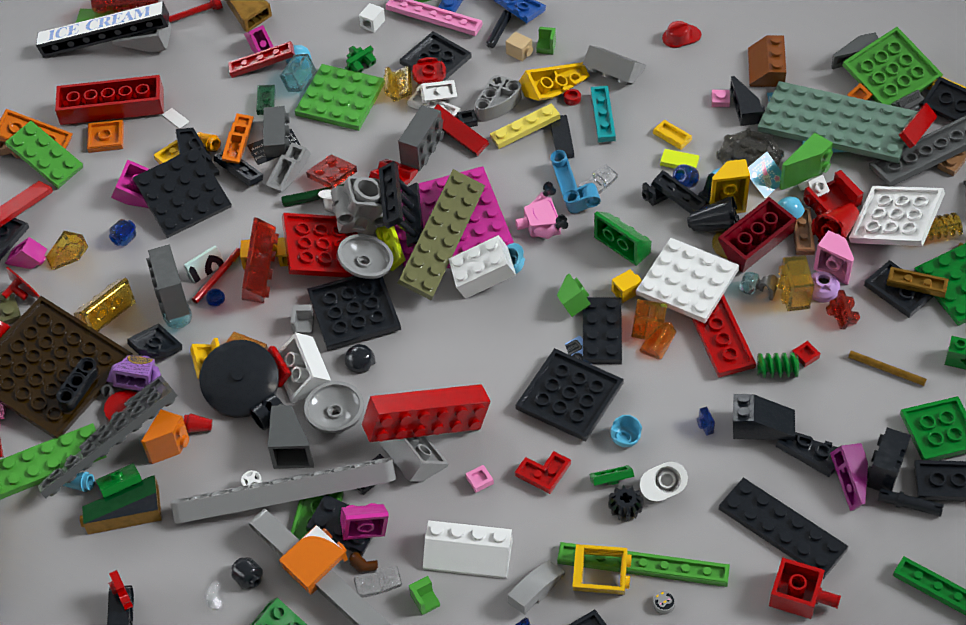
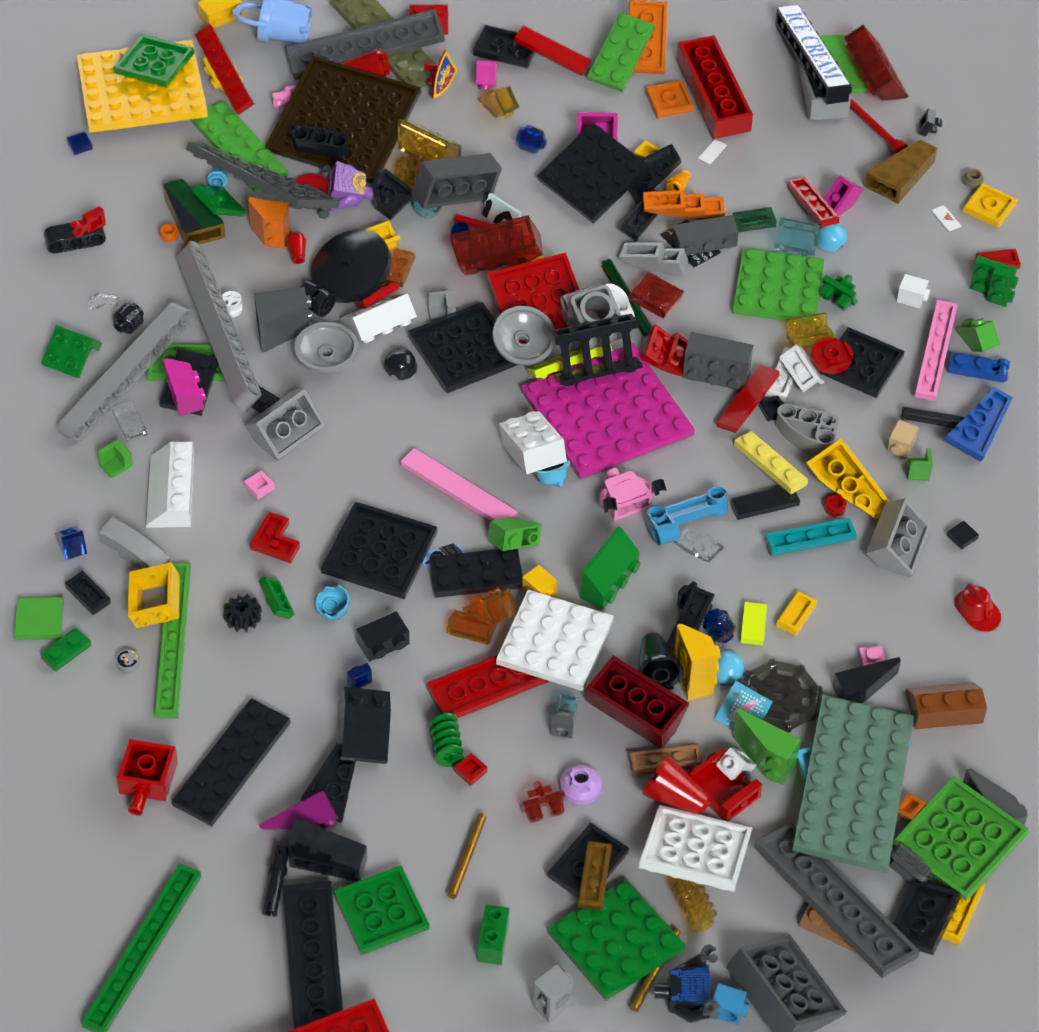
camera: 75 degrees right, 0 degrees up
(129, 323) = (408, 168): none -> clear yellow gear
(141, 526) = (168, 232): none -> orange plate
(313, 558) = (138, 357): orange panel -> none
(361, 564) = (146, 407): reddish brown arm -> none
(425, 412) = (311, 412): red brick -> none
(441, 234) = (573, 398): olive plate -> none
(509, 332) = (456, 486): none -> bright pink tile
(613, 31) = (962, 535): none -> black tile
(663, 481) = (268, 639): white piece -> none
(666, 400) = (382, 636): none -> black brick
(792, 205) = (691, 738): medium azure hair -> none
(796, 283) = (566, 745): clear yellow brick -> none
(834, 257) = (615, 783): bright pink slope -> none
(918, 125) = (862, 869): red tile -> none

